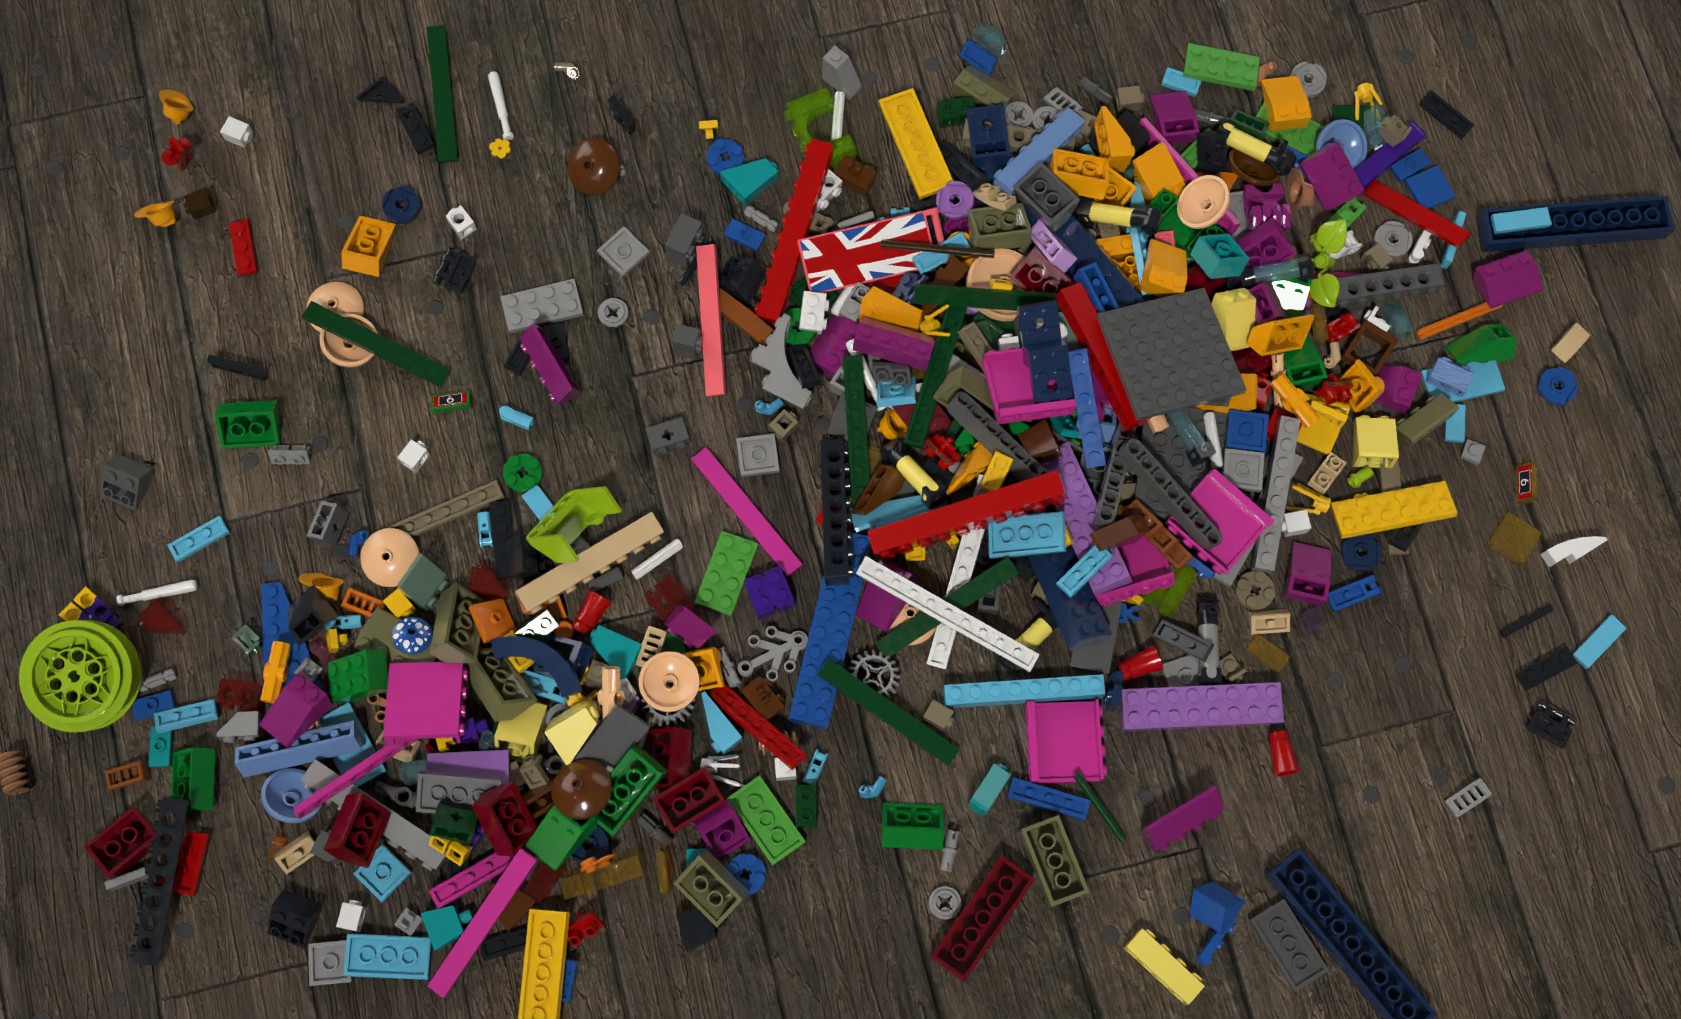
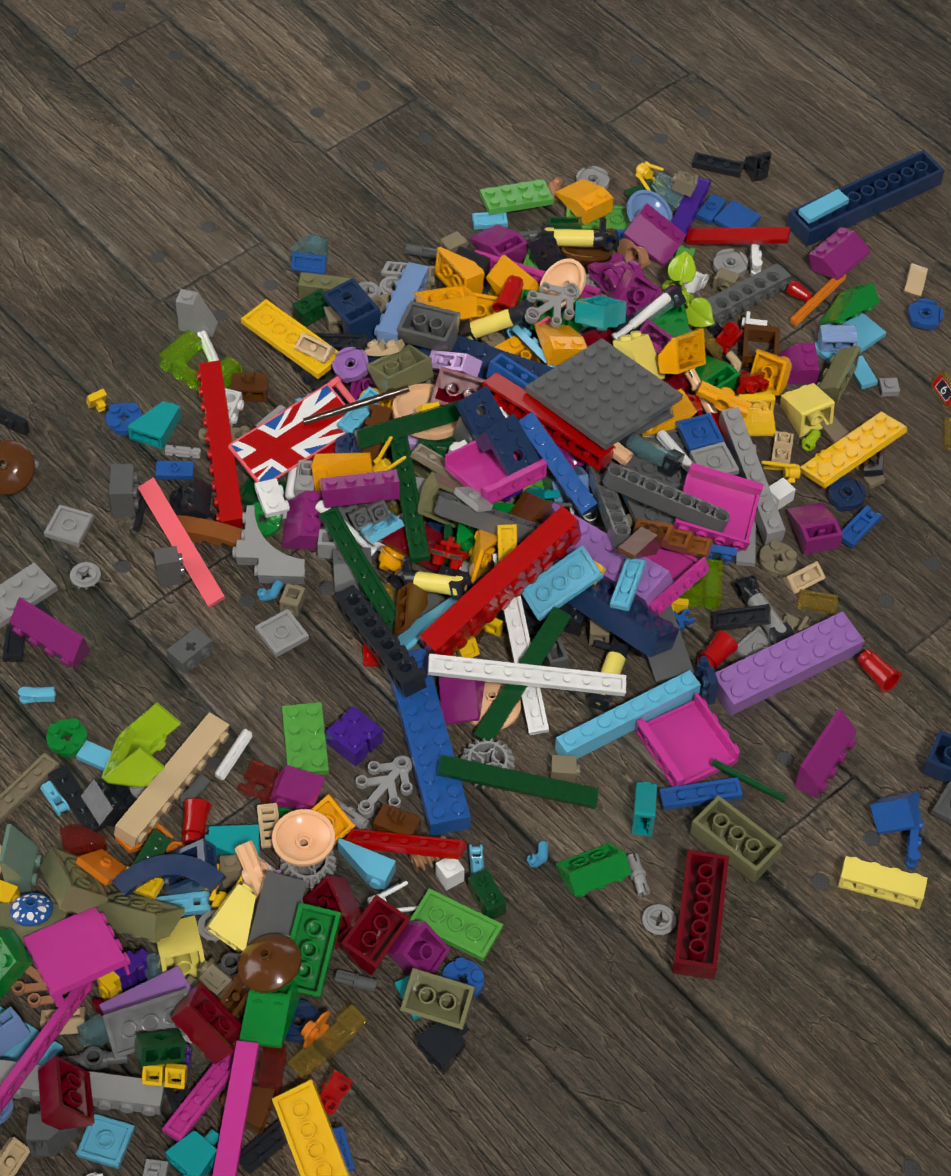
camera: 25 degrees left, 20 degrees down
(663, 877) = (385, 1008): clear yellow tile -> none
(746, 512) = (293, 681): dark pink tile -> none
(803, 366) = (287, 542): black plate -> none
(930, 166) = (314, 347): none -> tan slope
(986, 413) = (473, 499): none -> light grey plate
(1145, 191) = (509, 294): none -> red plant
(1179, 224) = (552, 302): none -> light grey plant
(1271, 274) = (650, 310): none -> white piece
(1313, 619) = (839, 559): clear purple plate -> none
(1398, 319) = (772, 314): clear light blue slope -> none
(1443, 303) = (798, 291): none -> red cone
(1449, 251) = (779, 249): medium azure tile -> none
(1484, 136) = (757, 165): none -> black slope

